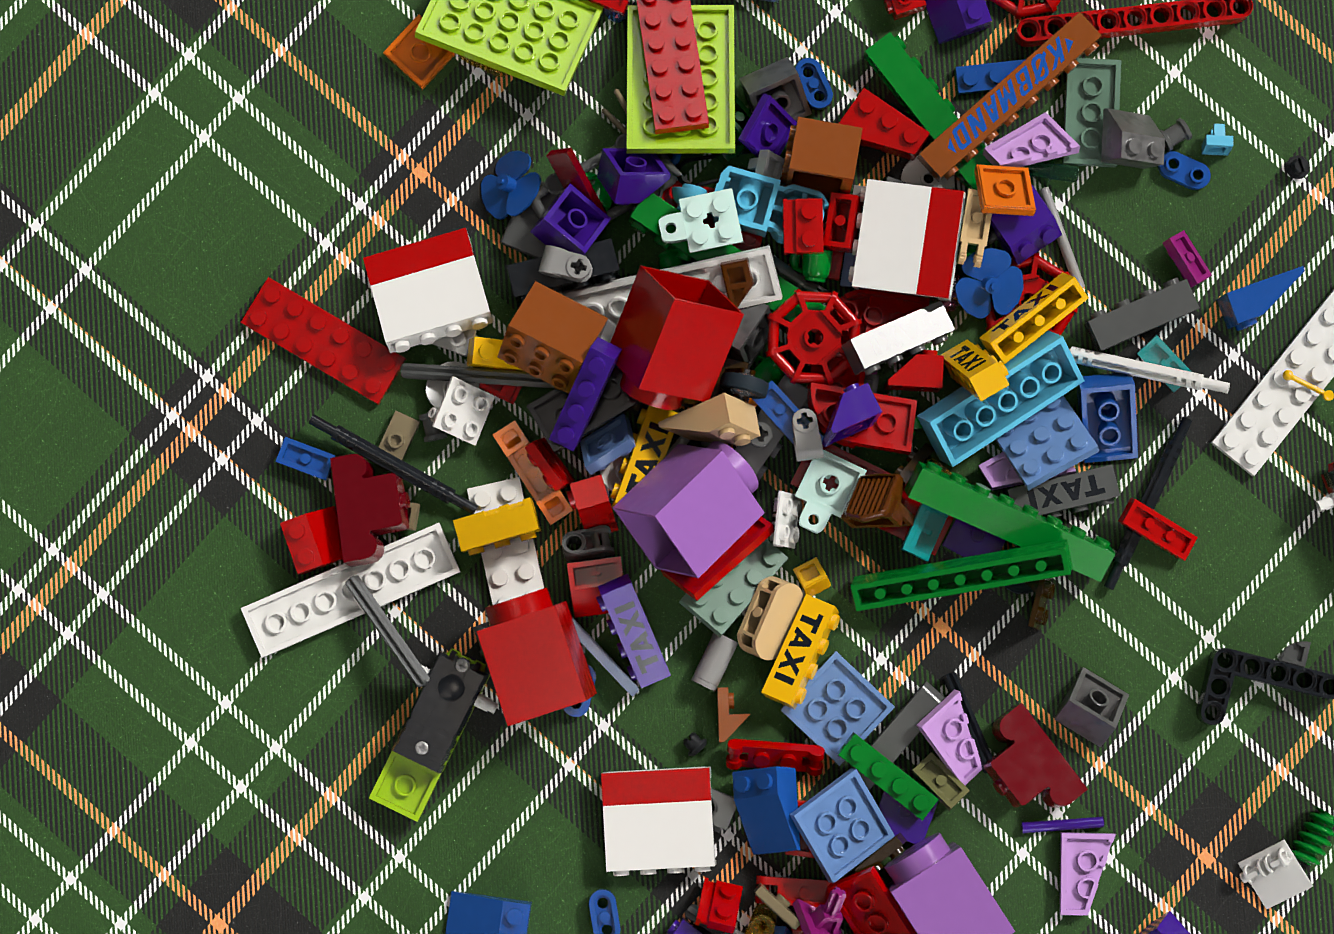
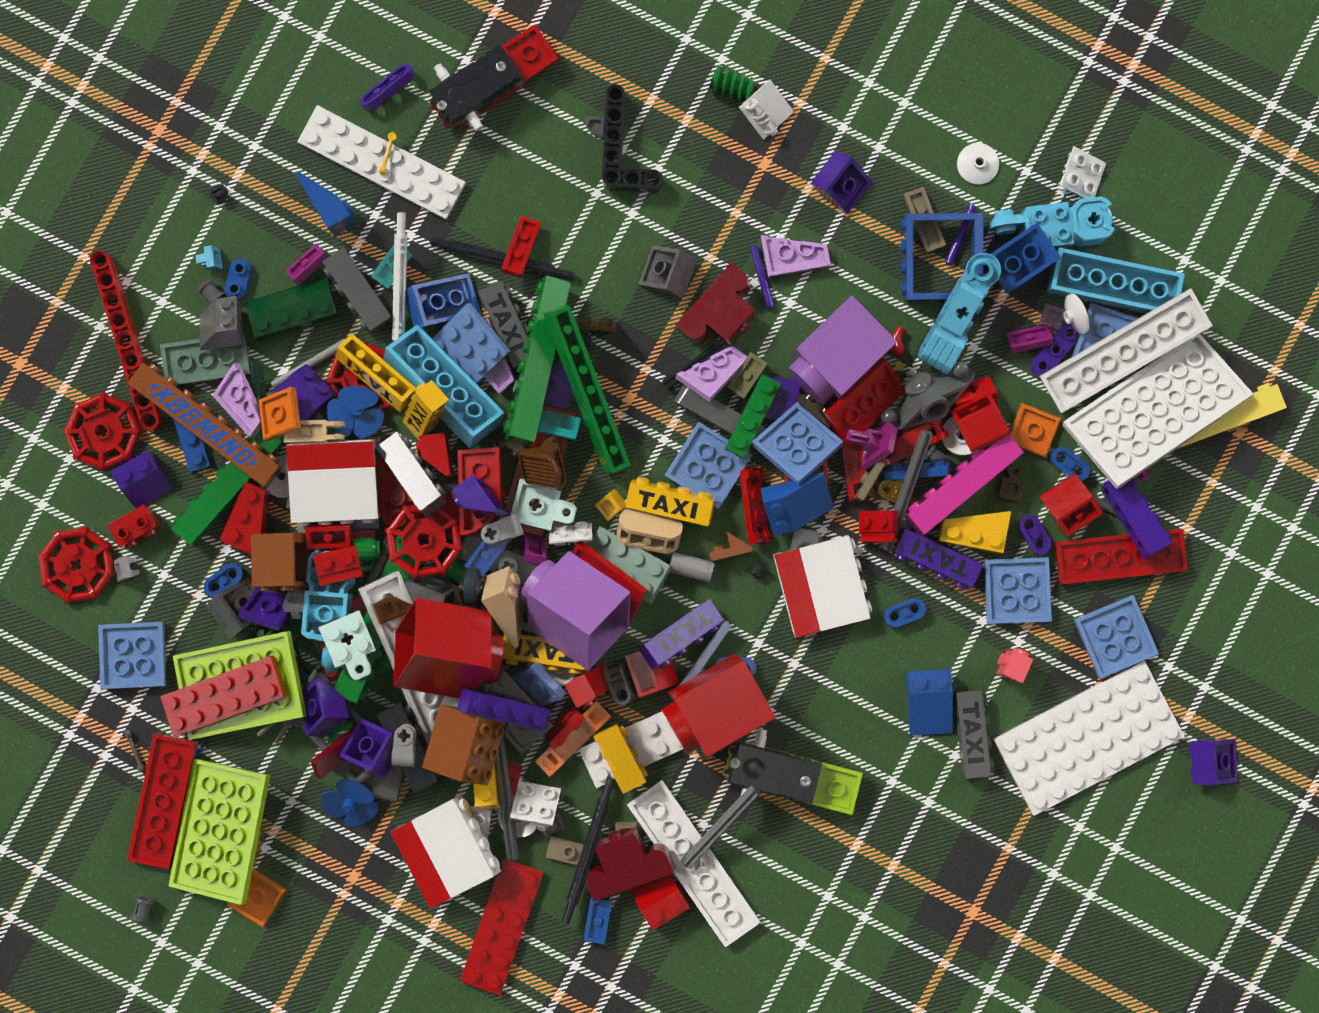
camera: 105 degrees left, 0 degrees up
(776, 470) = (534, 549): none -> magenta plate
(1134, 230) = (292, 309): none -> dark green slope

